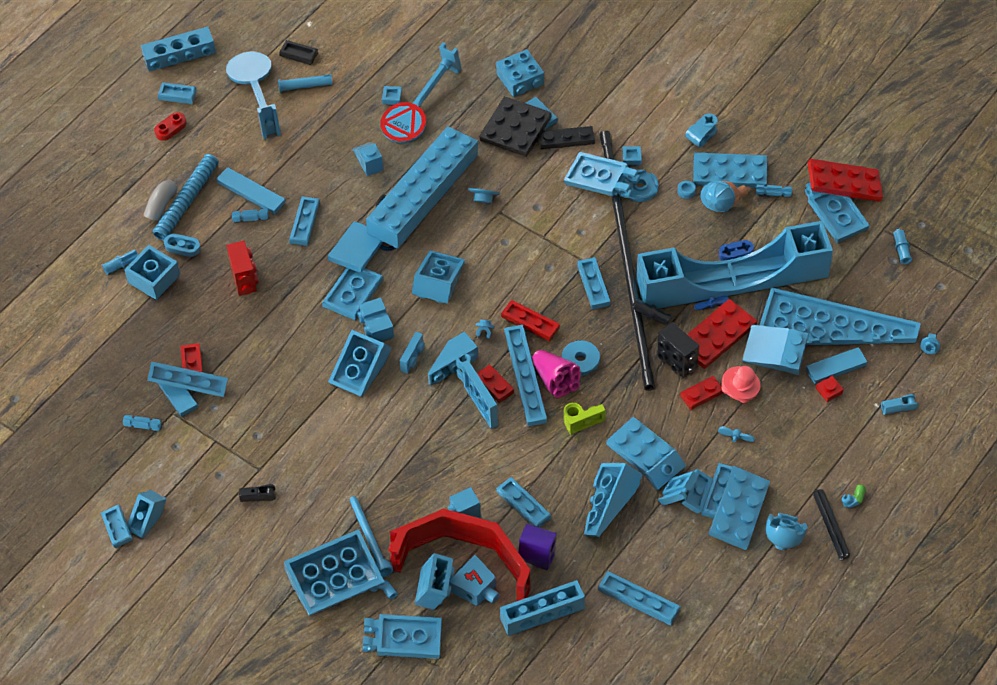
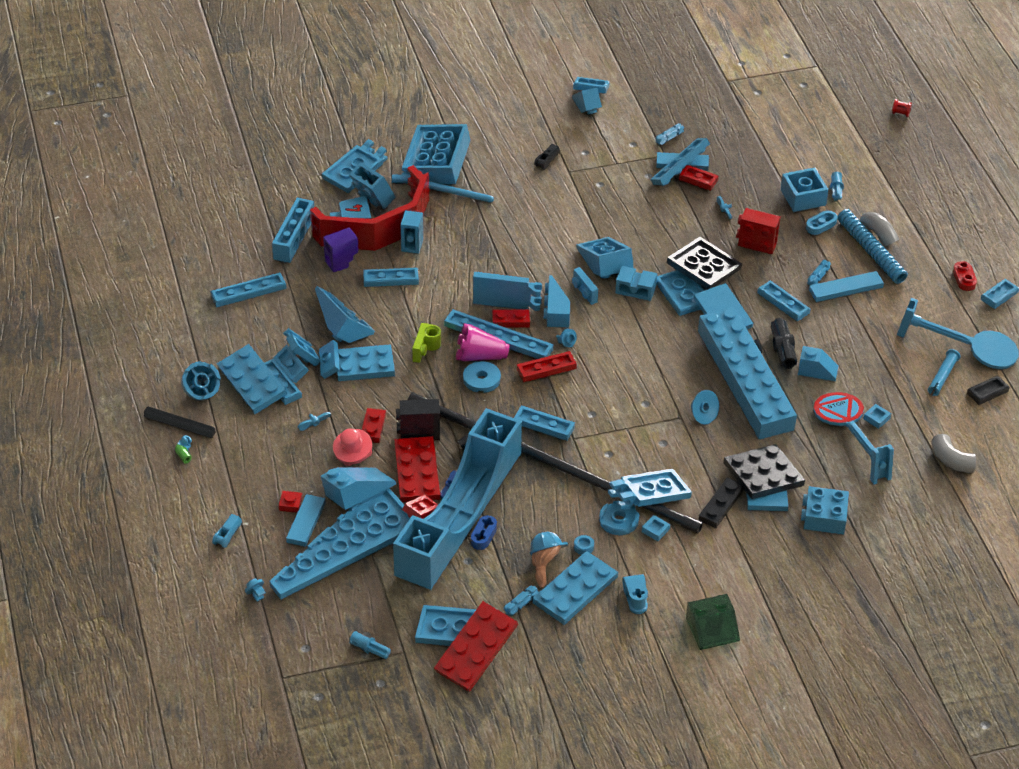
camera: 125 degrees right, 10 degrees down
(216, 324) = (724, 207): none -> dark azure piece
(311, 287) = (704, 263): none -> plate
(361, 189) = (783, 343): none -> black piece
(397, 33) = (951, 456): none -> light grey cylinder
(437, 277) = (645, 337): dark azure slope -> none
(684, 79) = (712, 621): none -> clear green slope
(759, 293) = (420, 507): none -> red plate

